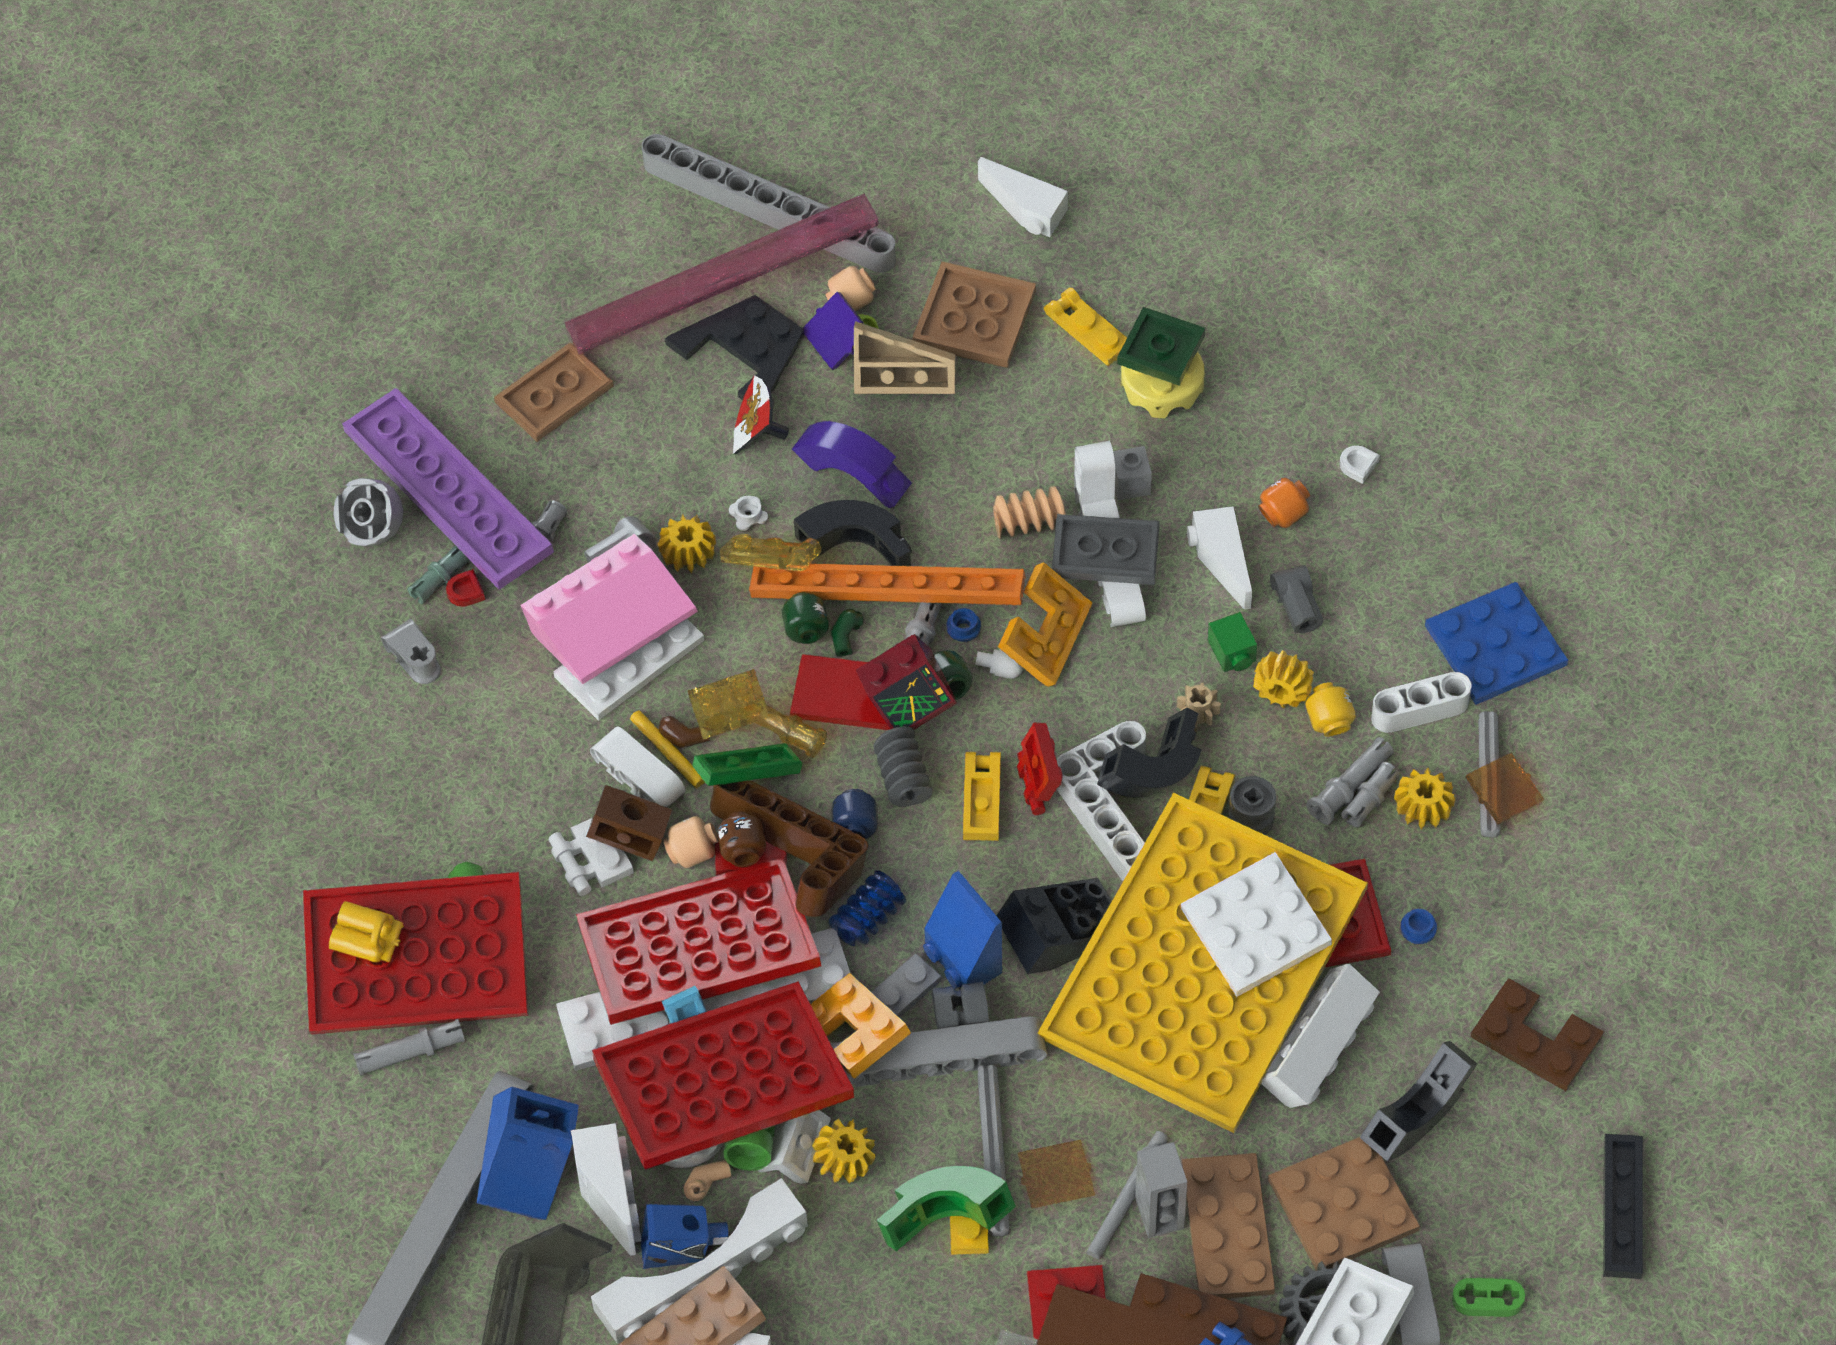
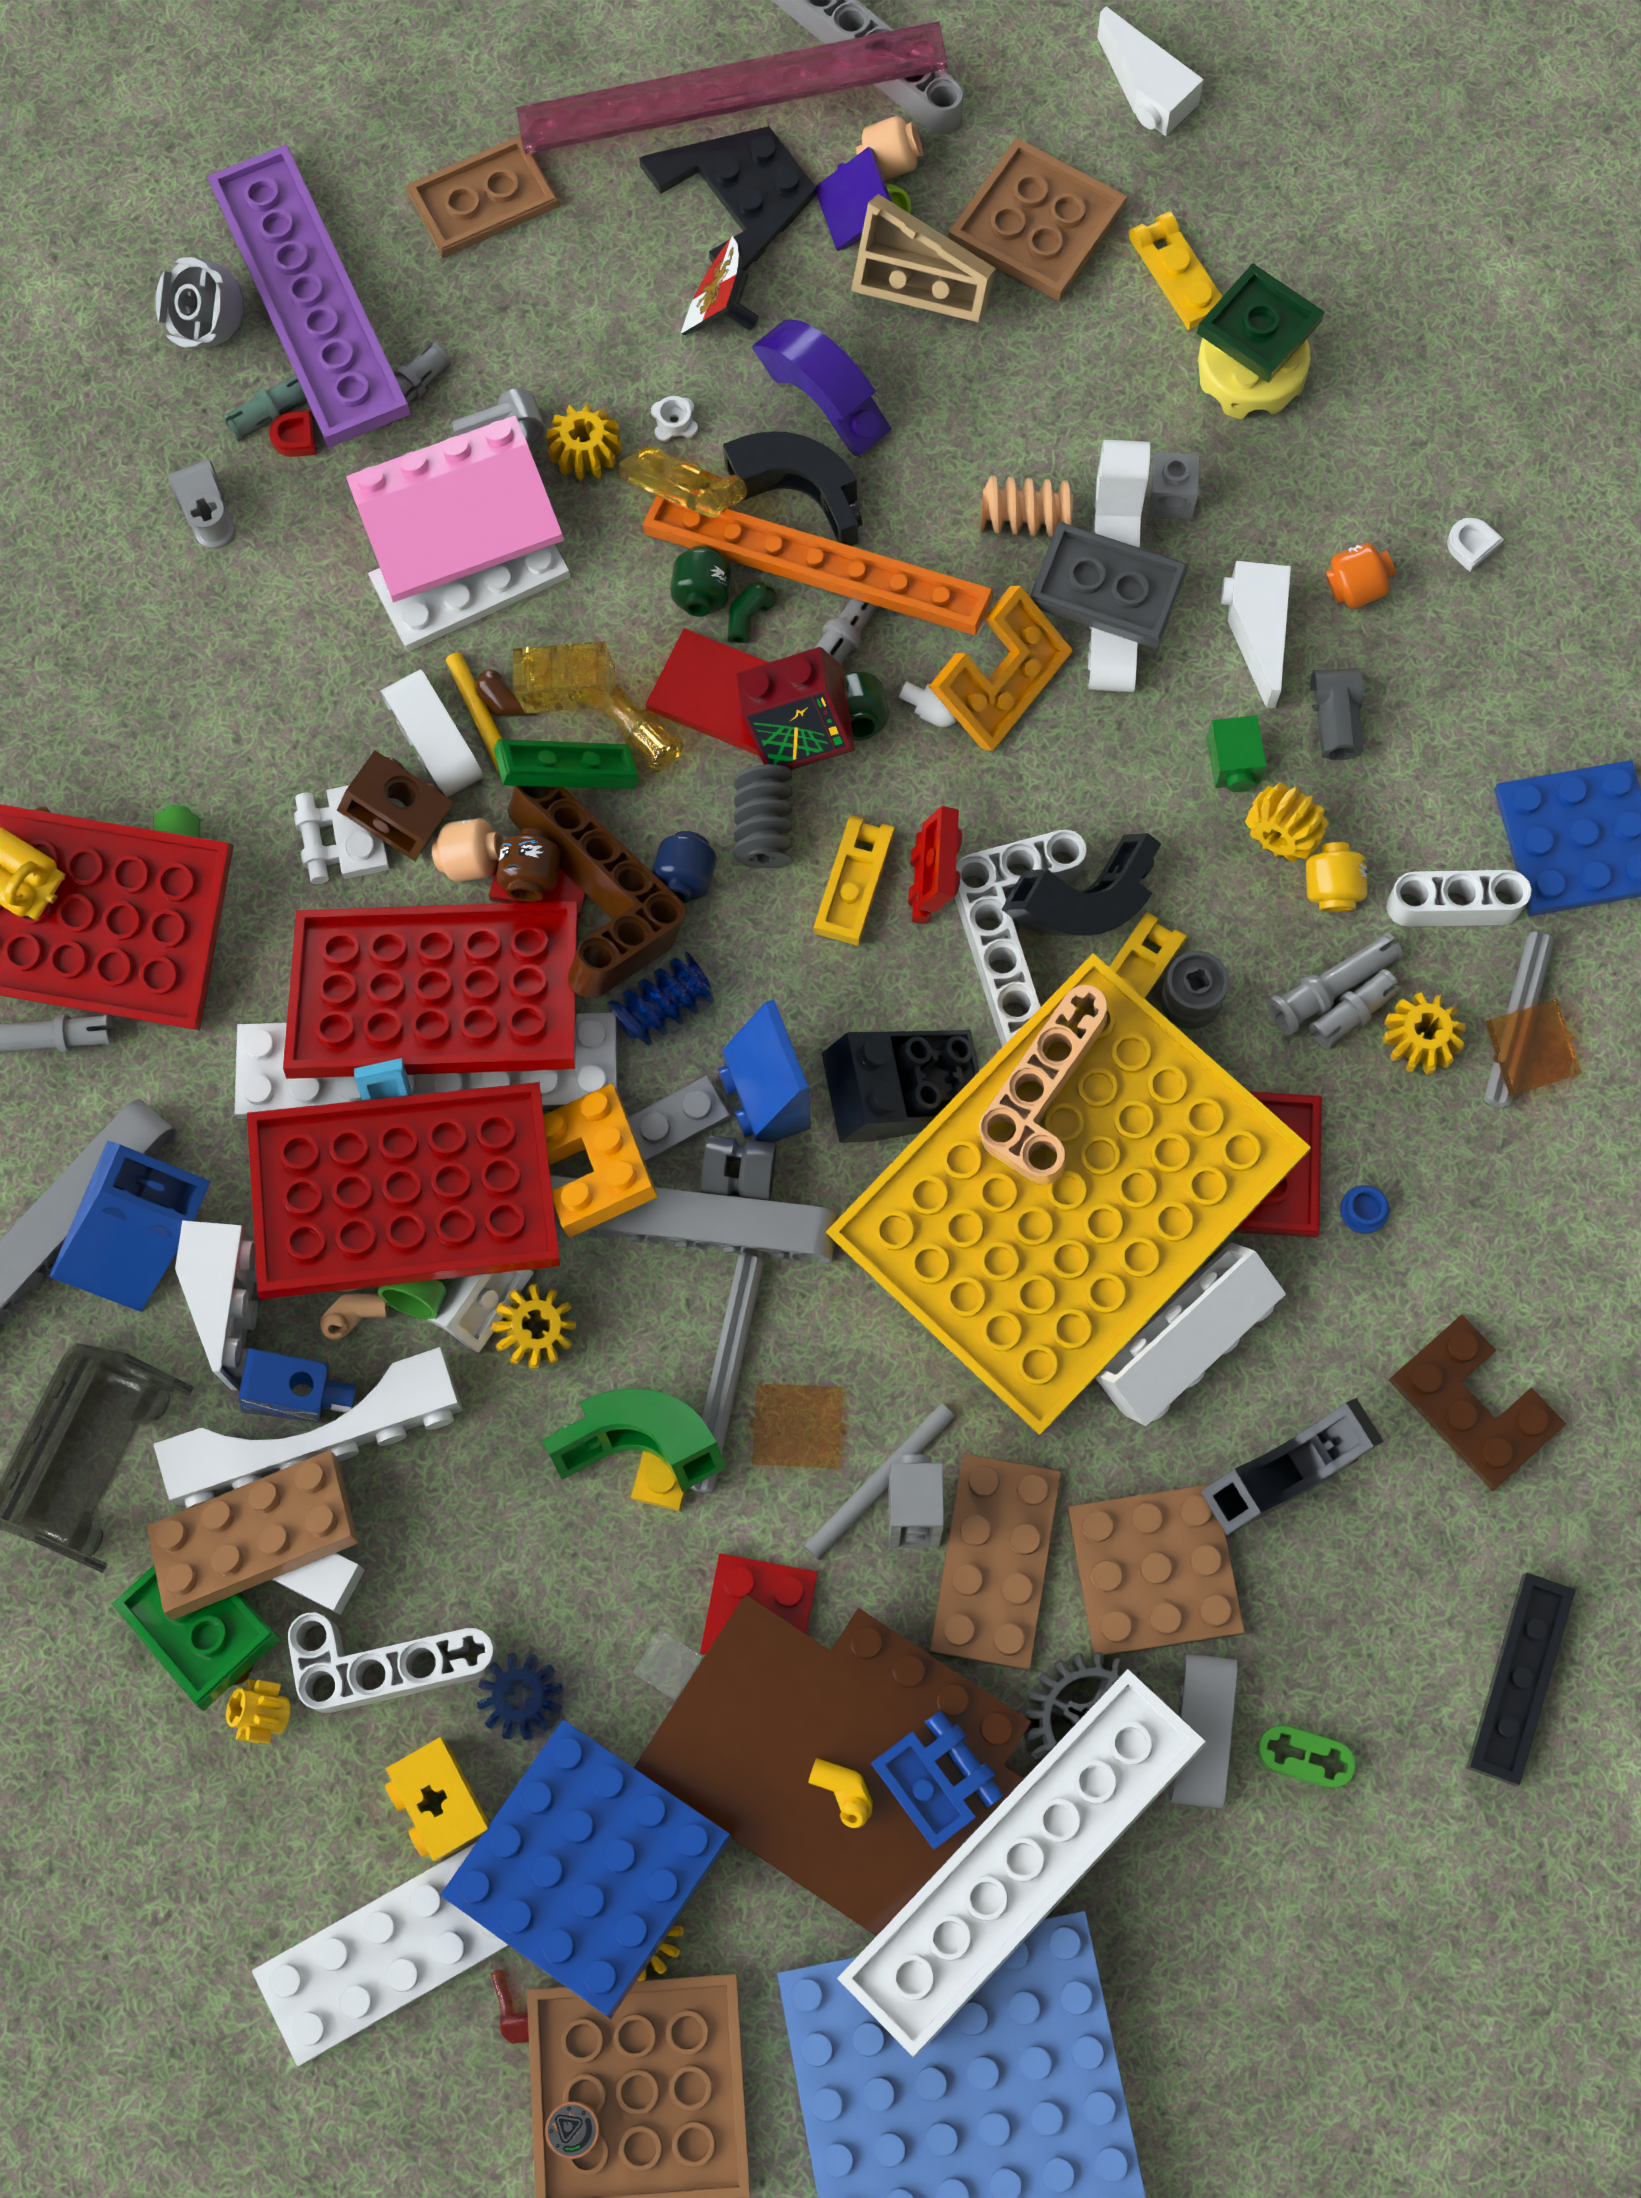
camera: 15 degrees right, 15 degrees up
(964, 616) = (900, 627): blue plate -> none
(1168, 880) = (1052, 1077): none -> light nougat beam
(1201, 700) = (1173, 816): tan gear -> none
(1256, 924) = (1148, 1166): white plate -> none

